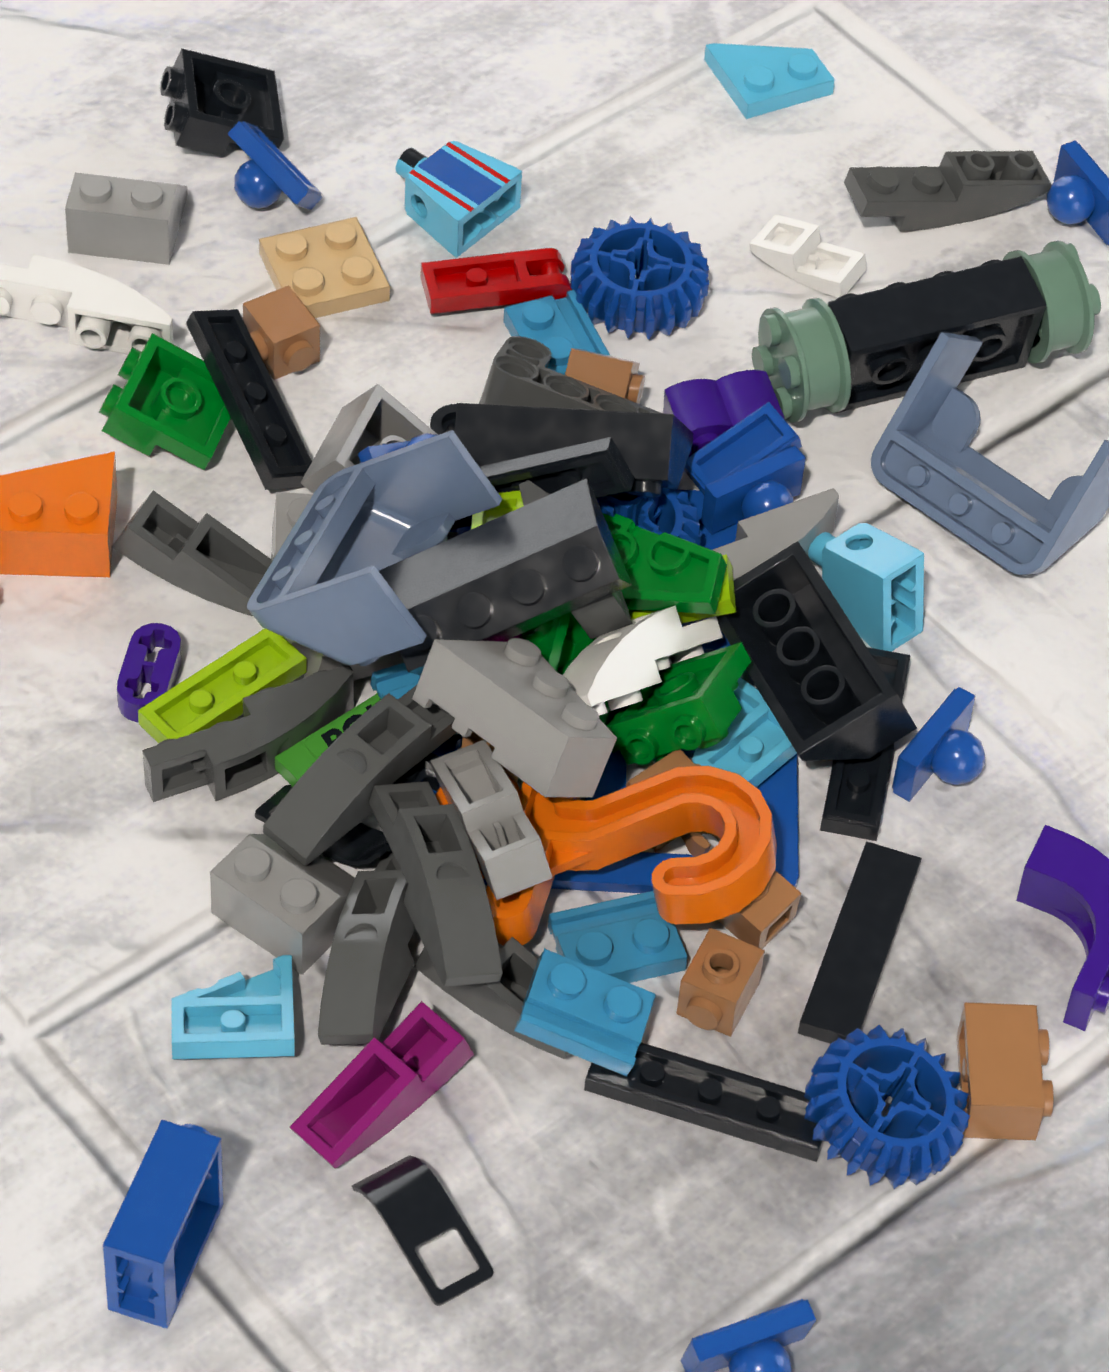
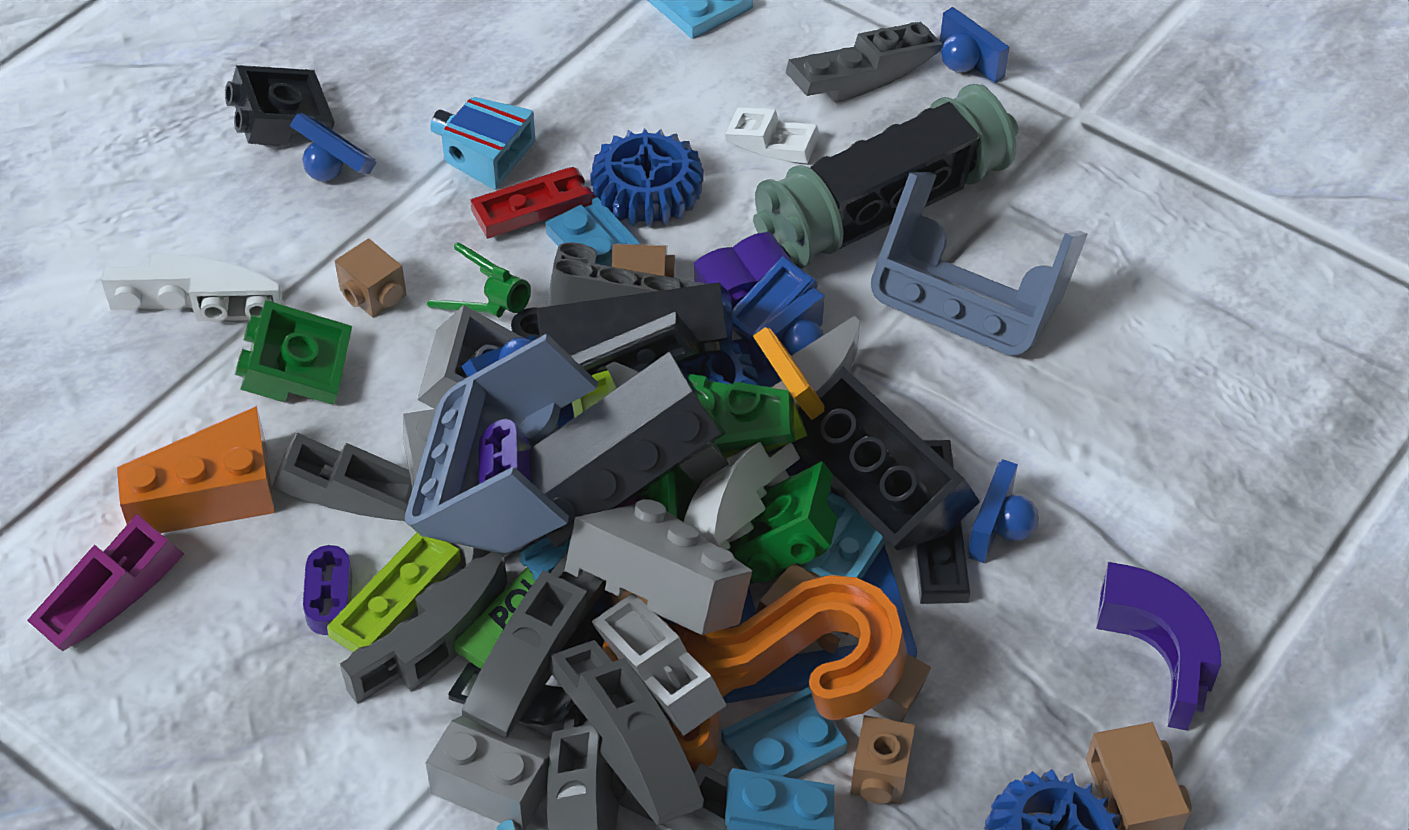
camera: 10 degrees left, 0 degrees up
(123, 218) = (218, 209): light grey slope -> none
(250, 397) = (359, 337): black tile -> none
(326, 267) = (394, 217): tan plate -> none
(378, 545) = (501, 448): none -> dark purple beam
(429, 374) = (501, 289): none -> green plant
(733, 536) = (789, 372): none -> light orange tile
(860, 943) = (985, 700): black tile -> none
(874, 583) = (909, 382): medium azure torso -> none

